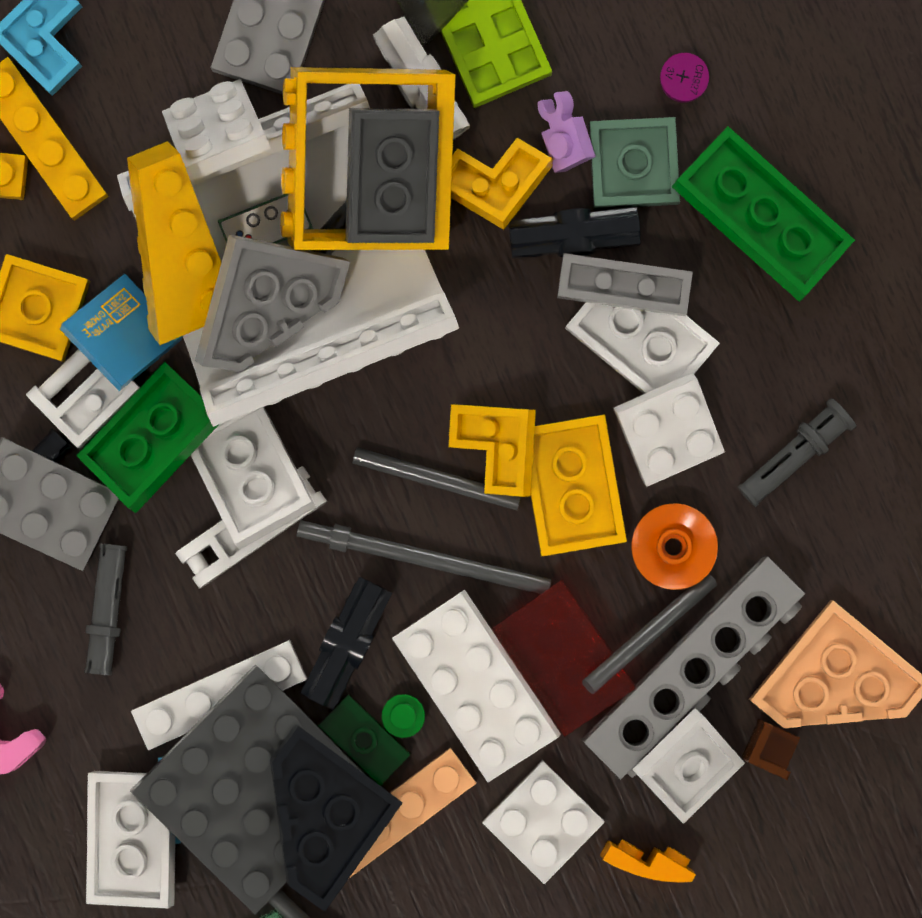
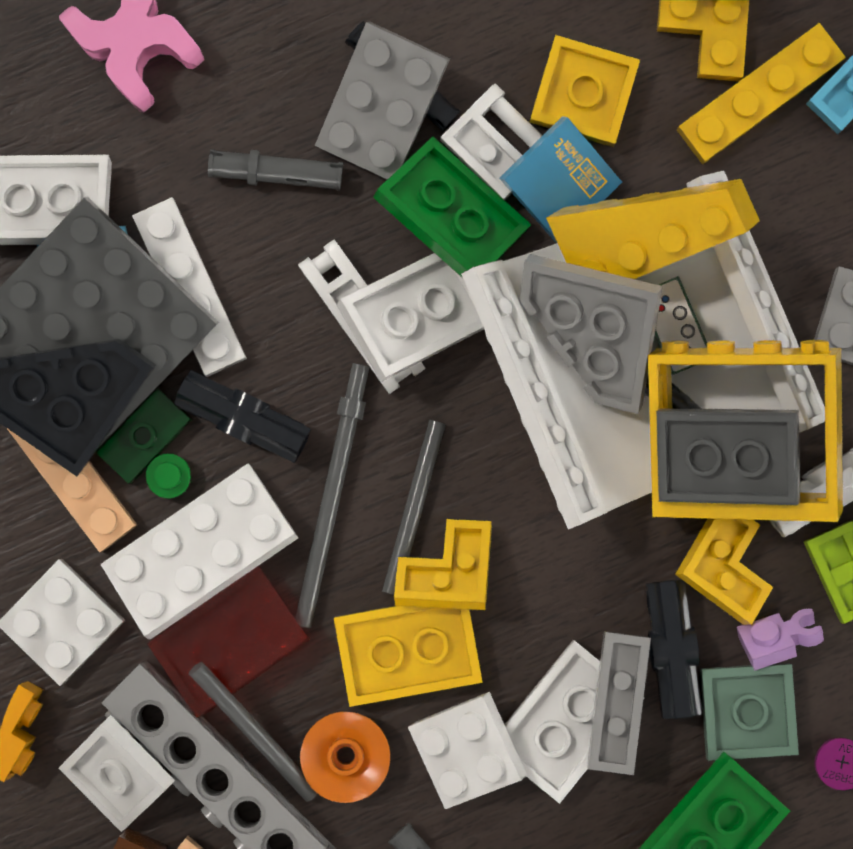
camera: 90 degrees right, 0 degrees up
(215, 129) = (773, 271): white plate -> none

